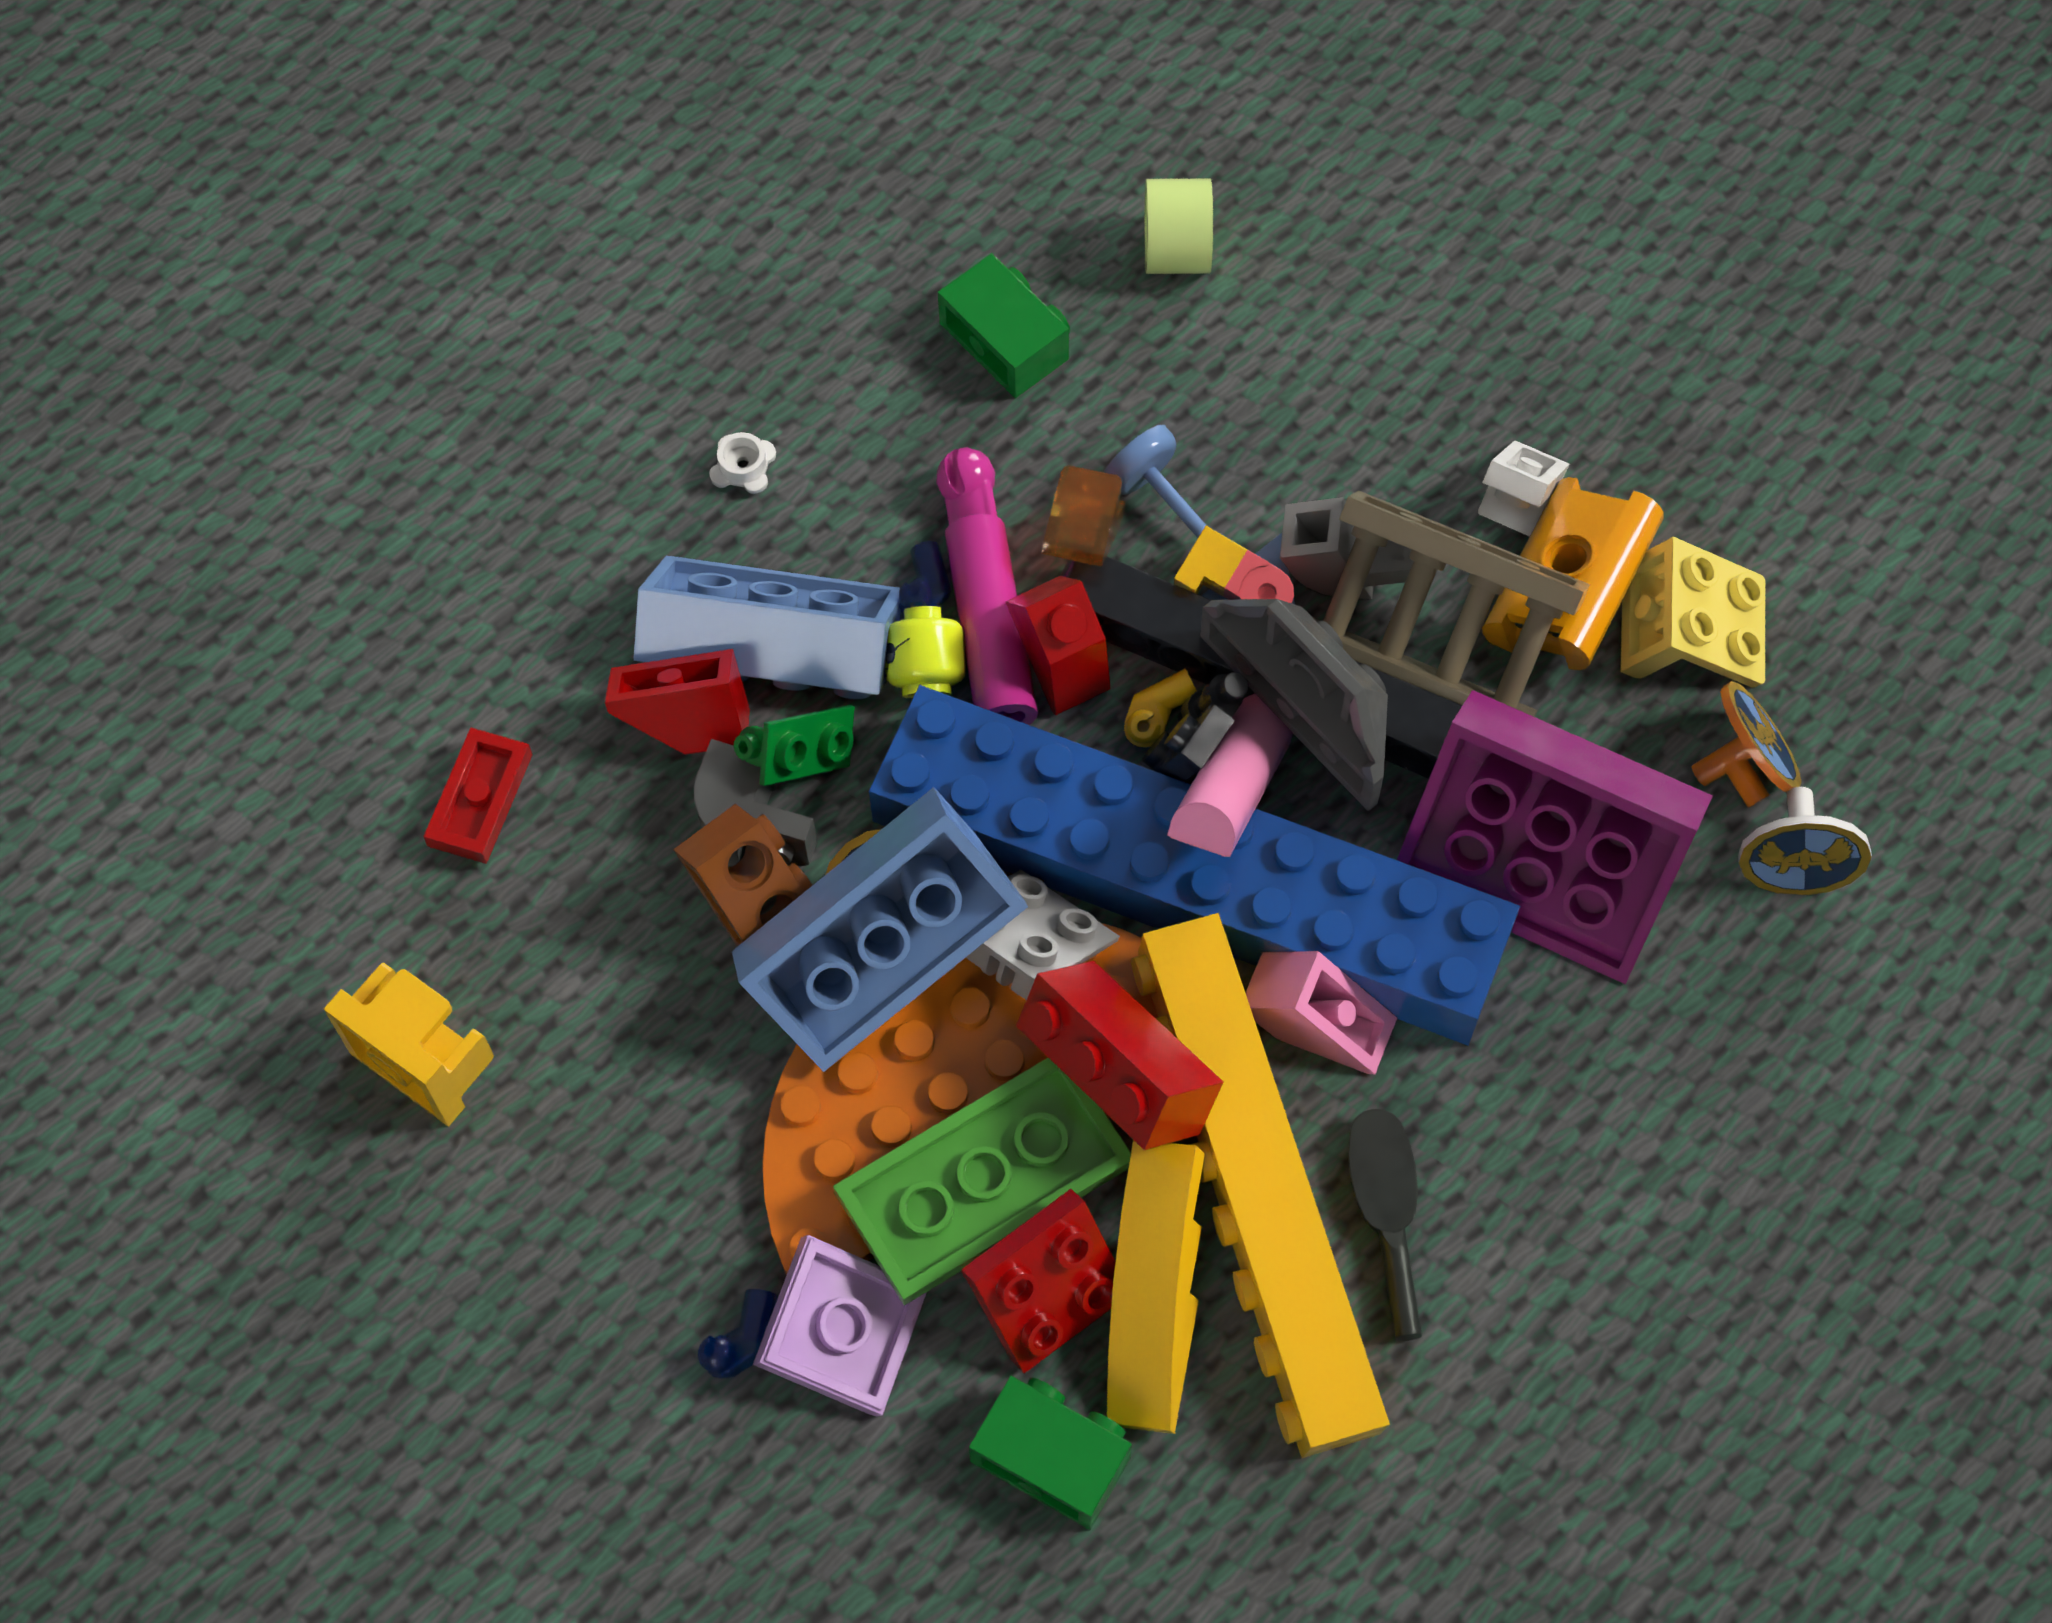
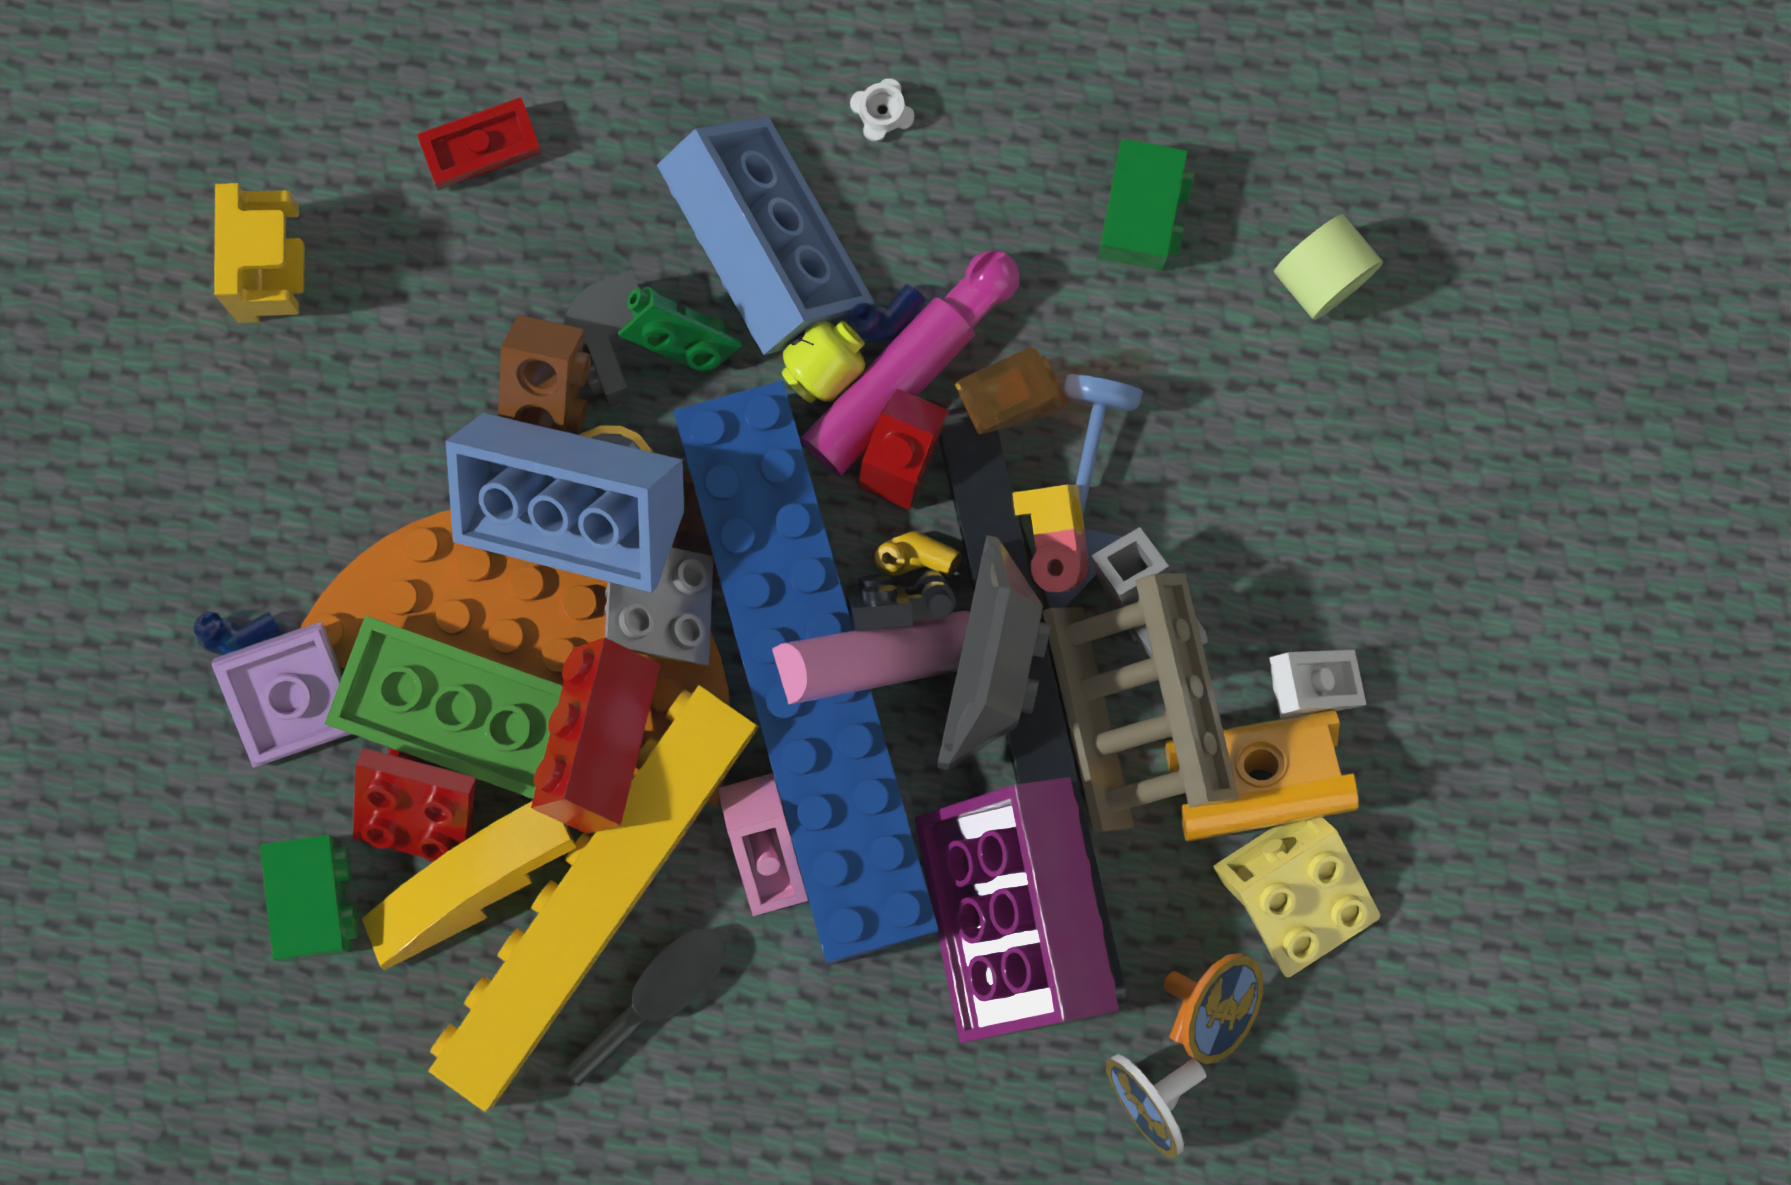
camera: 50 degrees right, 15 degrees up
(682, 699) = (649, 224): red slope -> none

